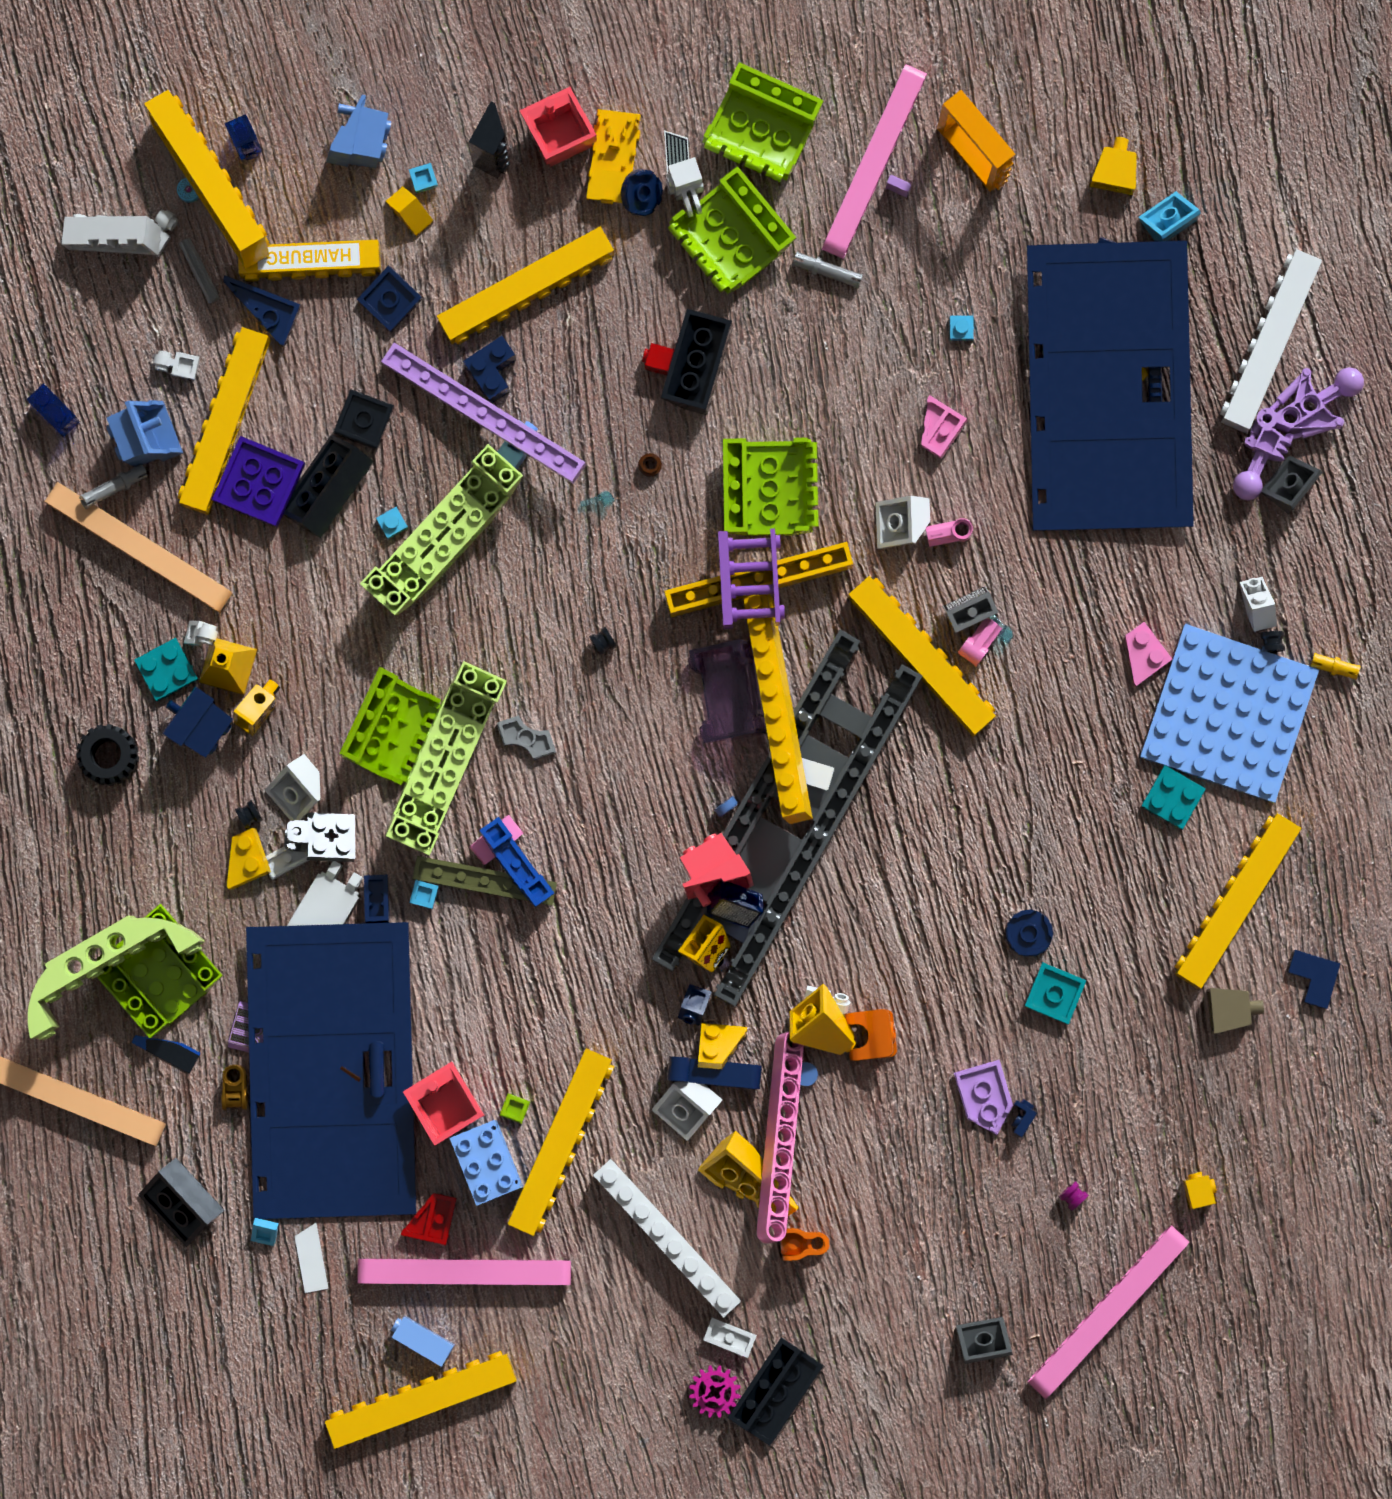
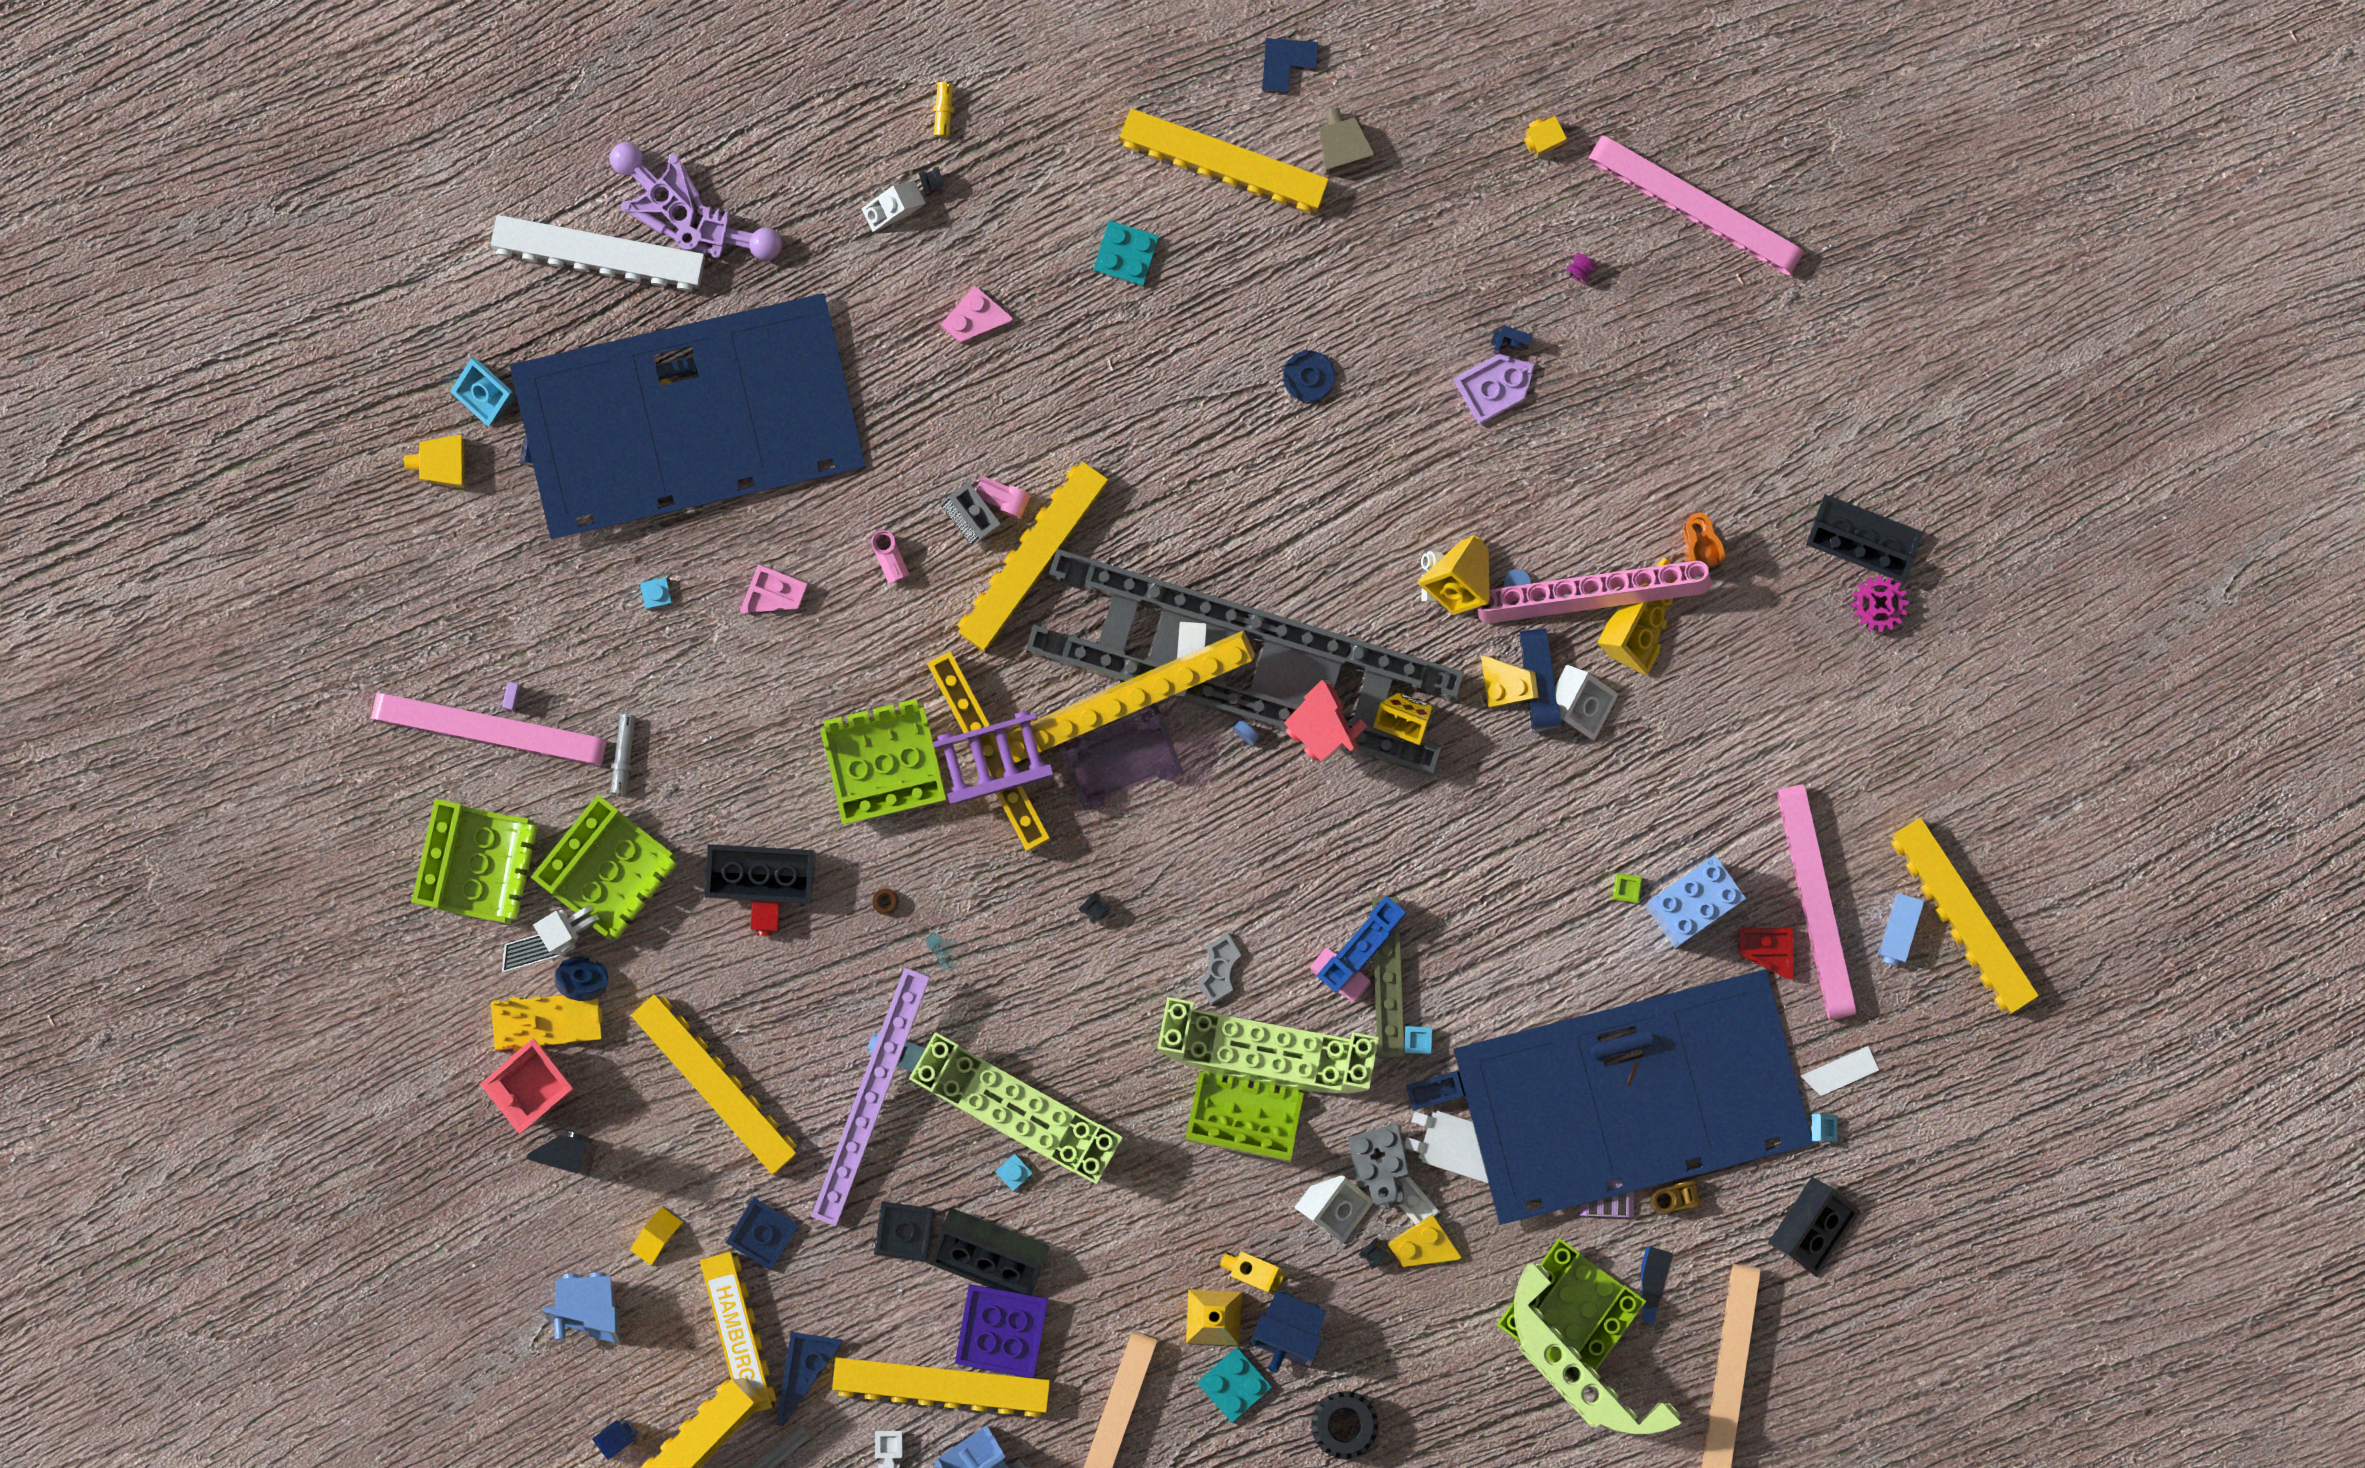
camera: 100 degrees left, 0 degrees up
(200, 633) = (1187, 1355): white plate -> none
(423, 178) = (616, 1228): medium azure plate -> none
(443, 1103) = (1643, 961): coral piece -> none
(485, 368) = (818, 1108): dark blue brick -> none
(560, 1141) = (1652, 829): yellow brick -> none
(667, 1238) = (1728, 691): white brick -> none
(694, 1005) = (1470, 718): dark blue bracket -> none
(729, 1337) = (1818, 601): white plate -> none
(735, 904) = (1354, 693): brick -> none
(881, 1033) = (1454, 510): orange piece -> none
(901, 520) = (889, 611): white slope -> none
(976, 141) = (449, 617): light orange window -> none
(983, 1340) = (1758, 330): dark grey slope -> none
(1006, 633) = (985, 470): clear light blue hand -> none
(1055, 993) = (1368, 334): teal plate -> none
(1229, 713) = (1020, 212): light blue plate -> none
(1290, 483) = (752, 197): dark grey slope -> none

